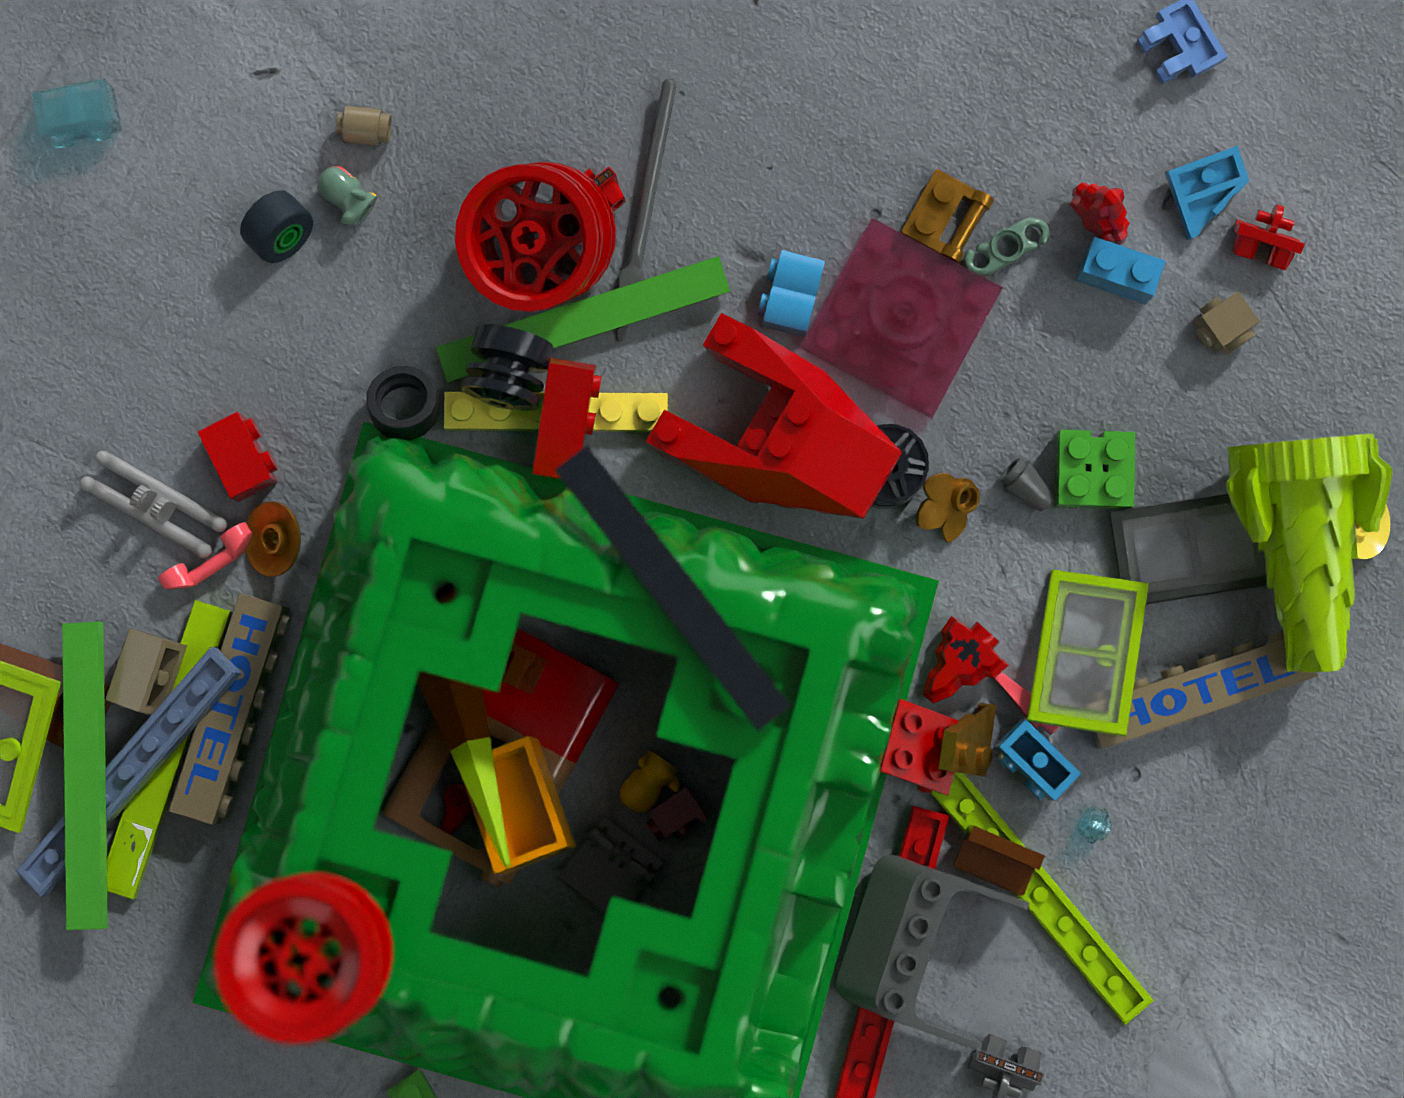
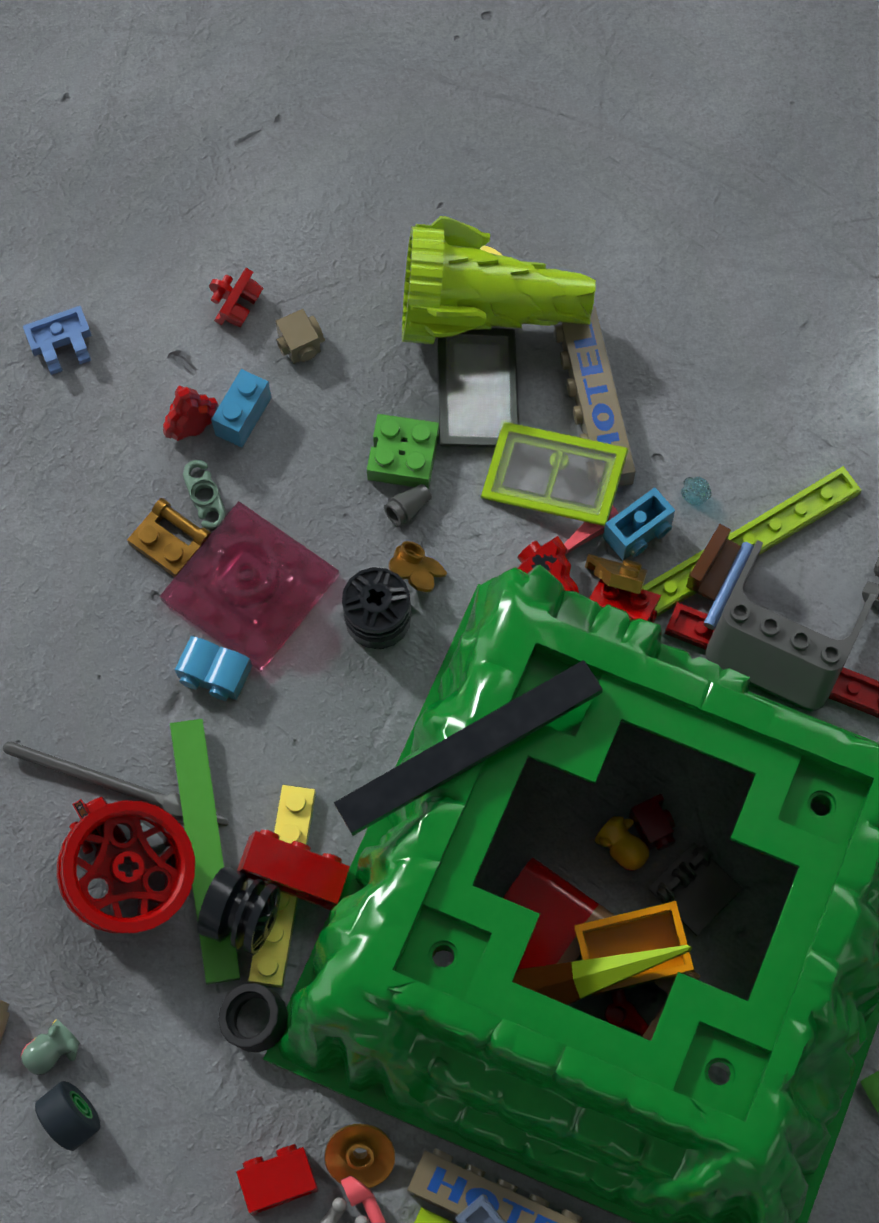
camera: 85 degrees left, 15 degrees down
(248, 945) = (816, 1083): red wheel -> none
(803, 444) = (347, 670): red wedge -> none
(974, 874) = (728, 585): none -> medium blue bar
(1206, 187) = (183, 337): dark azure wing -> none

